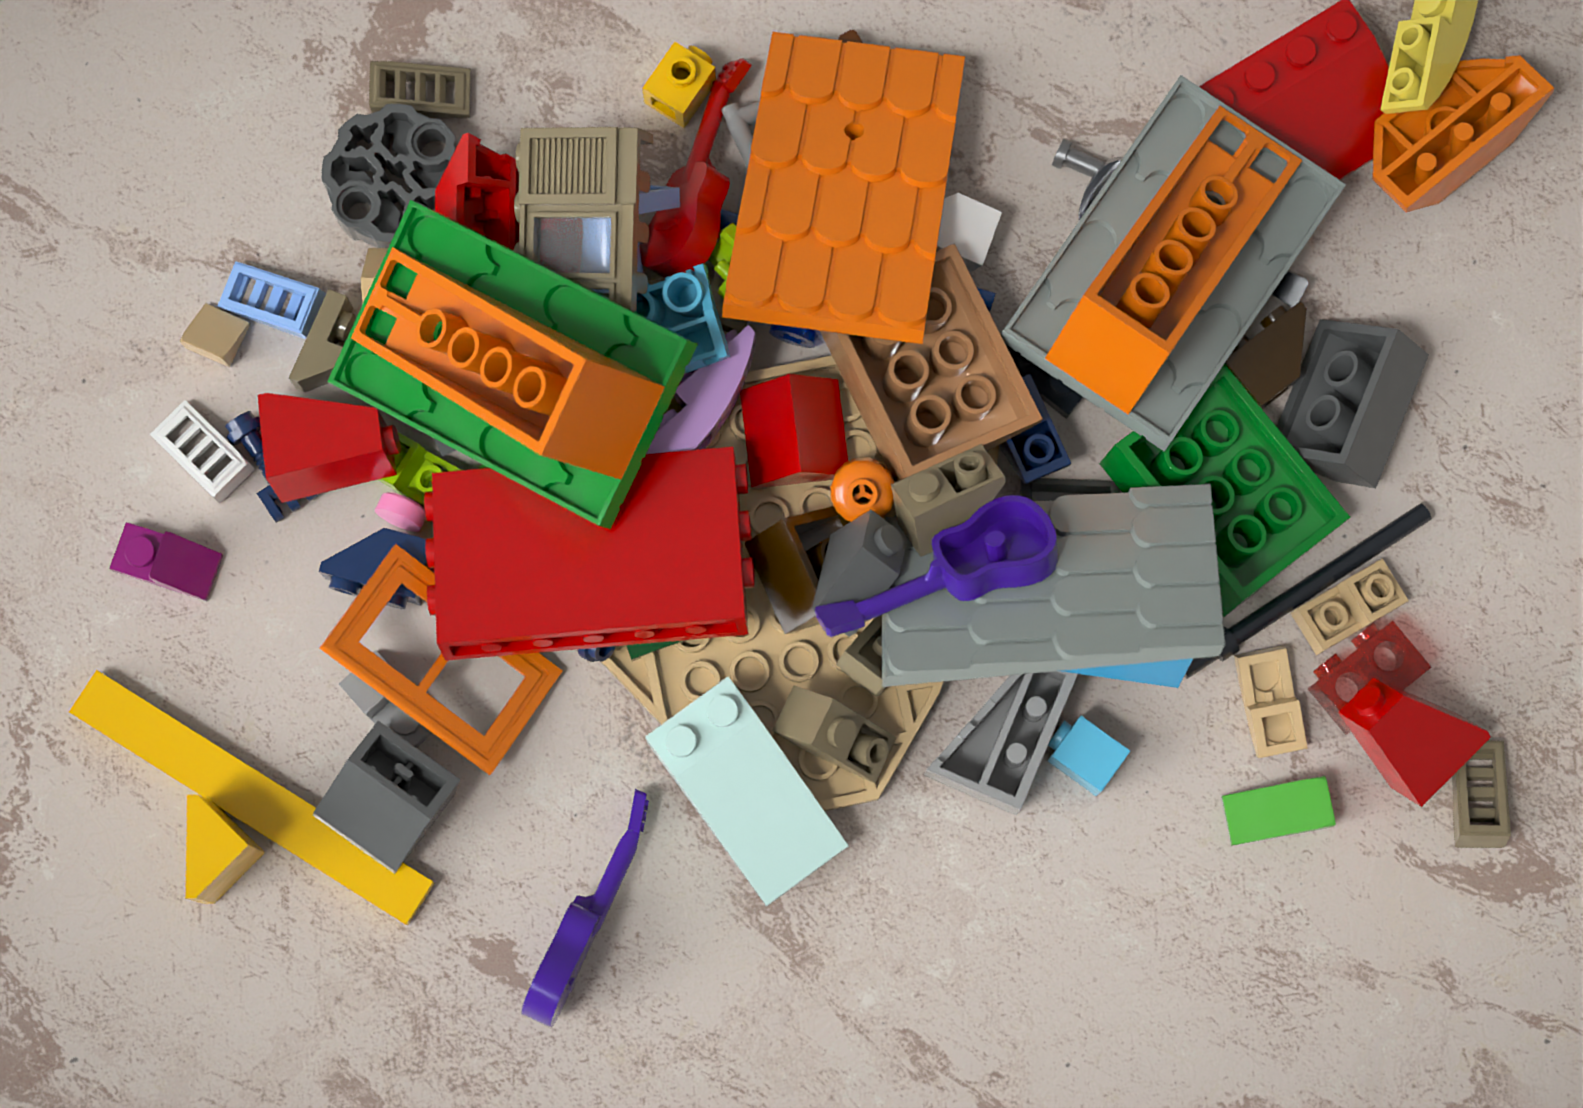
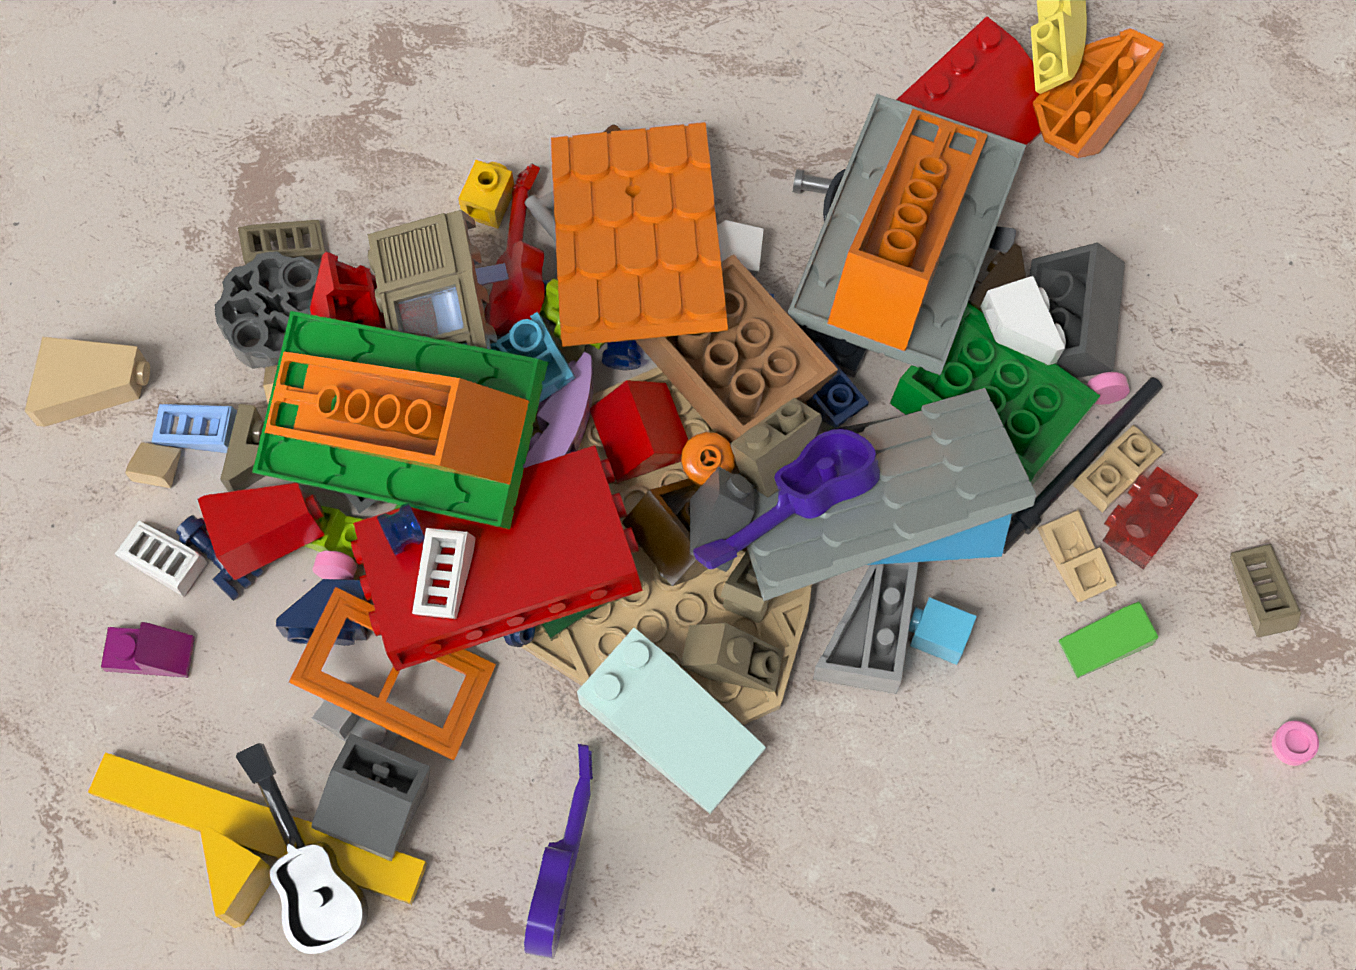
camera: 10 degrees left, 10 degrees down
(151, 210) = (83, 378): none -> tan slope
(303, 899) = (317, 898): none -> piece
(485, 499) = (401, 529): none -> clear blue wheel
(511, 542) = (431, 556): none -> white slope
(1280, 406) = (1022, 320): none -> white slope
(1365, 506) = (1110, 387): none -> bright pink tile
(1410, 738) = (1198, 554): red slope -> none
(1461, 981) = (1295, 743): none -> bright pink tile

